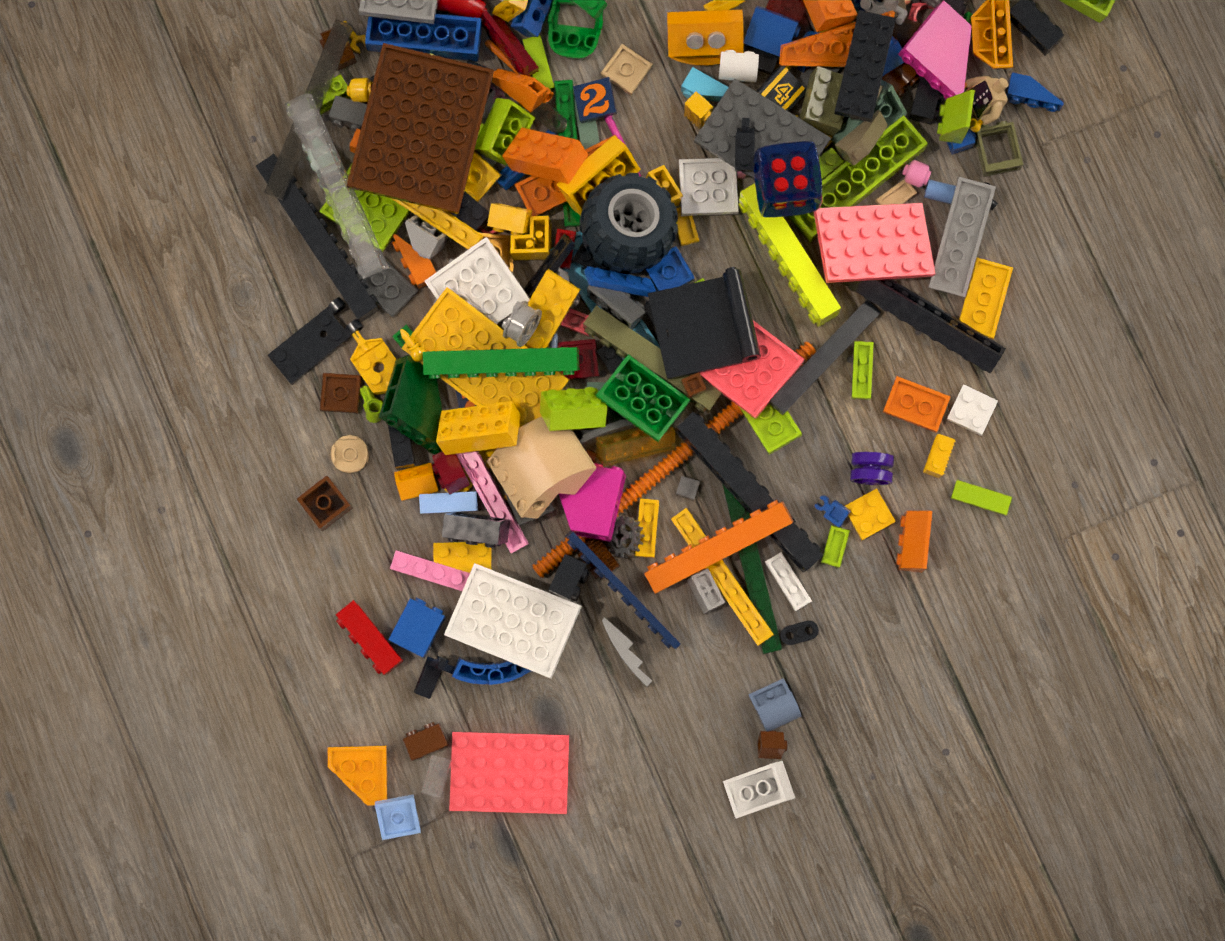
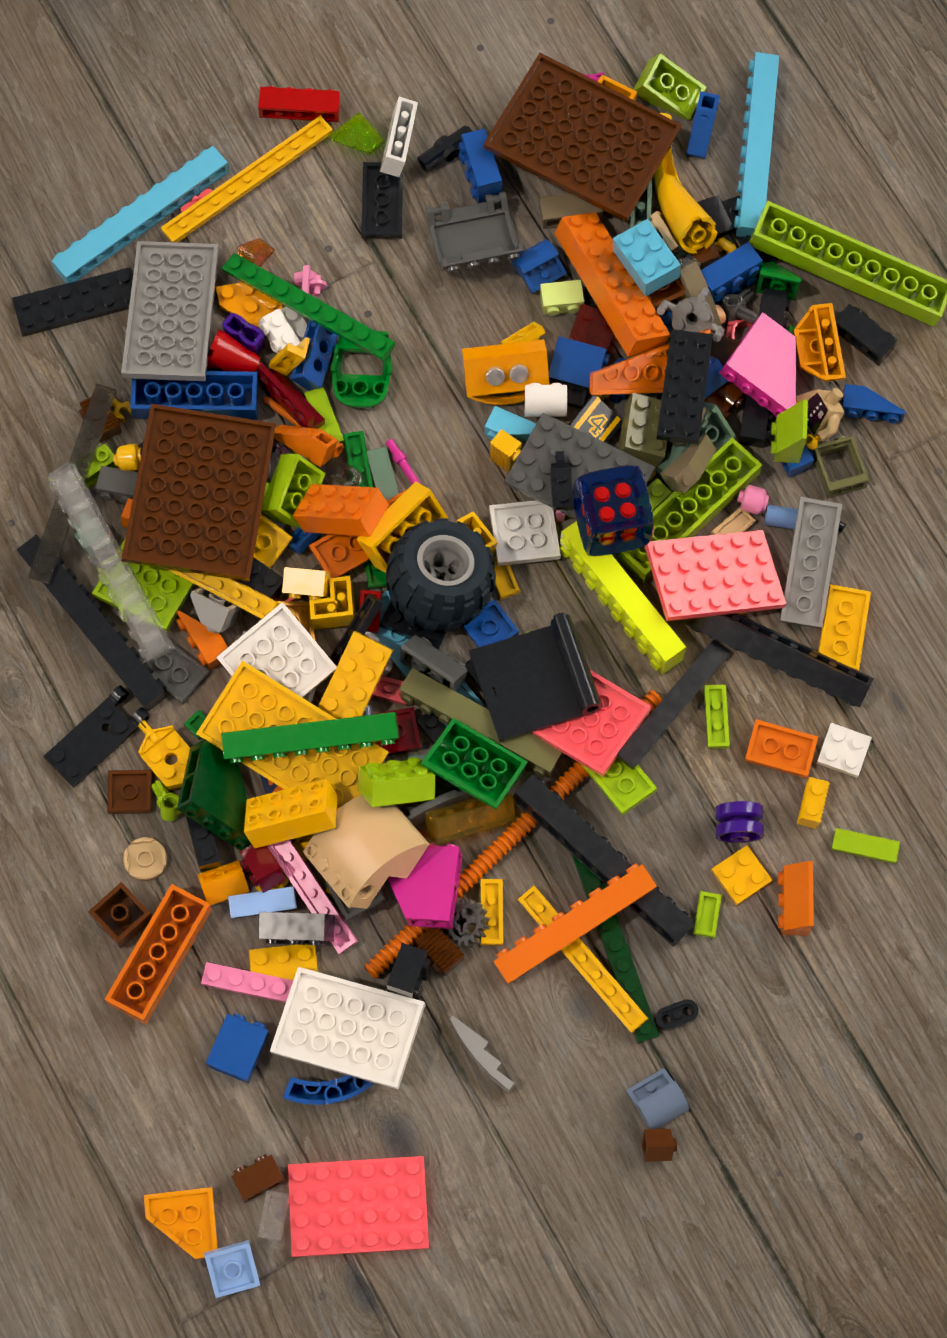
camera: 10 degrees left, 10 degrees down
(355, 540) = (158, 954): none -> orange brick
(369, 638) = (183, 1064): red brick -> none
(415, 351) = (213, 734): yellow bar -> none
(430, 675) = (257, 1100): black bracket -> none
(521, 323) = (330, 691): light grey wheel -> none
(595, 100) = (390, 449): dark blue tile -> none
(619, 281) = (435, 640): blue plate -> none
(626, 69) = (422, 415): tan tile -> none
(627, 596) = (464, 976): dark blue plate -> none
(687, 487) = (533, 863): flat silver tile -> none
(693, 385) = (530, 745): reddish brown plate -> none
(705, 591) = (565, 976): light grey hinge -> none
(759, 789) = (649, 1198): white slope -> none
(788, 581) = (658, 958): white tile -> none
(835, 512) = (703, 875): blue plate -> none

